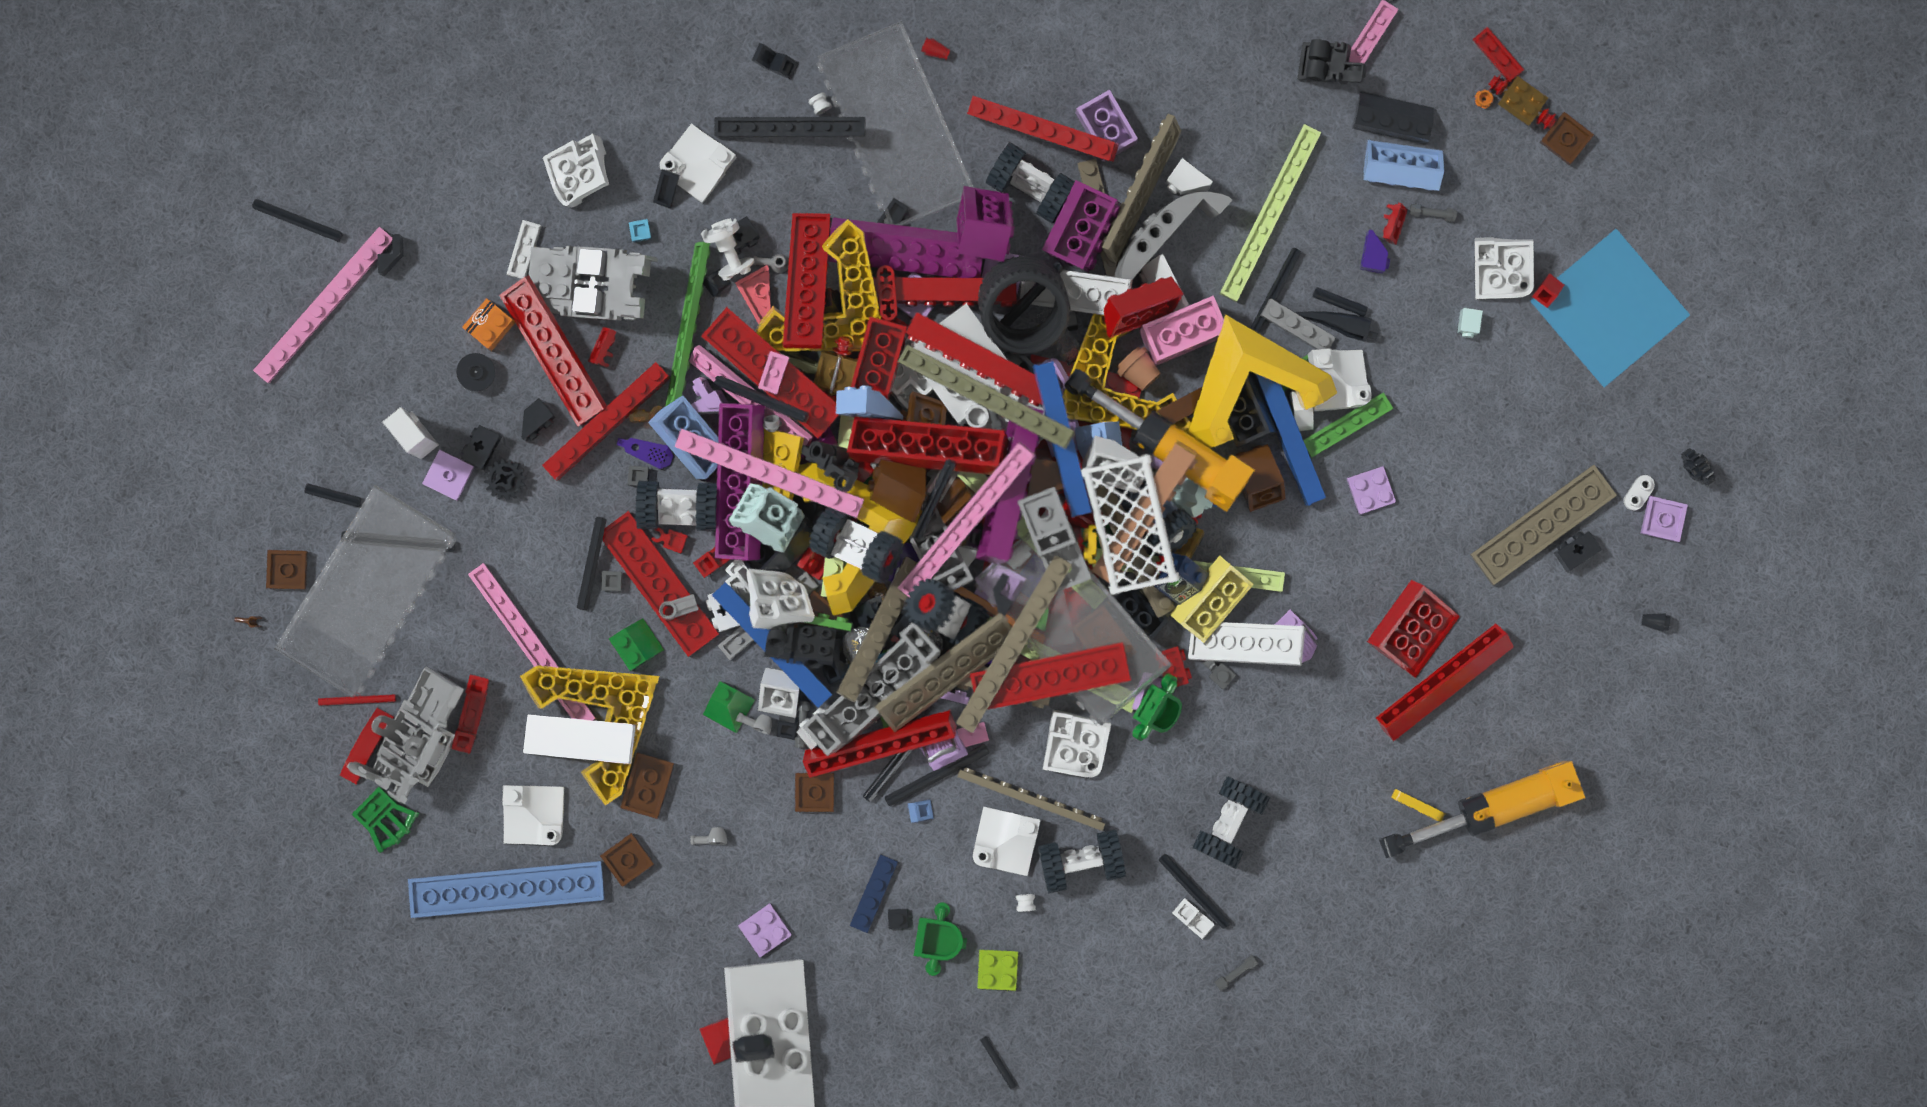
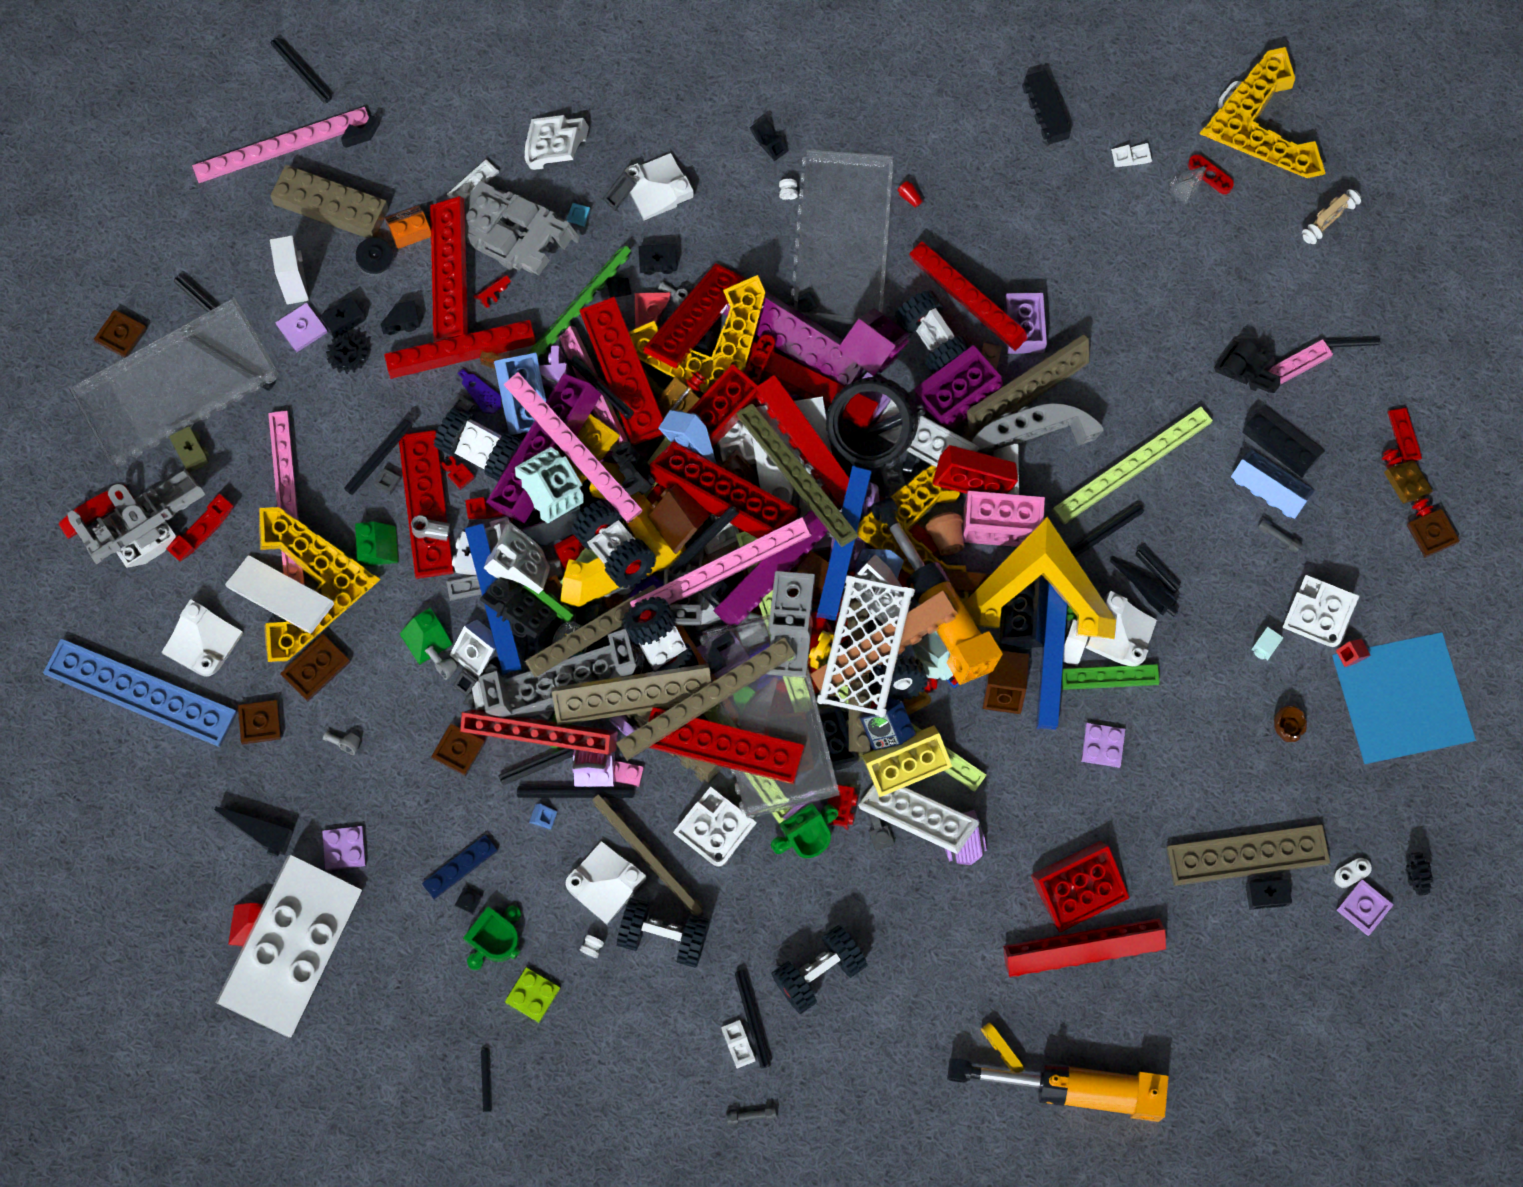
camera: 30 degrees right, 15 degrees down
(251, 621) = (64, 360): reddish brown hand -> none
(357, 700) = (112, 469): red bar -> none
(375, 809) = (68, 567): green plate -> none
(403, 341) = (329, 202): none -> dark tan brick
(422, 655) = (185, 439): none -> olive brick
(691, 955) = (268, 835): none -> black slope
(722, 235) = (644, 252): white piece -> none
(753, 1048) = (270, 935): black slope -> none
(772, 423) = (599, 412): light grey plate -> none
(773, 372) = (623, 367): bright pink plate -> none
(790, 127) = (752, 193): black plate -> none
(1187, 179) = (1074, 395): white slope -> none
(1297, 325) = (1107, 568): light grey plate -> none
(1374, 254) = (1208, 545): dark purple slope -> none
(1395, 222) = (1241, 527): red plate -> none
(1483, 94) = (1373, 460): orange plate -> none
(1524, 386) = (1290, 723): none -> reddish brown hair
(1656, 621) = (1314, 997): black cone -> none

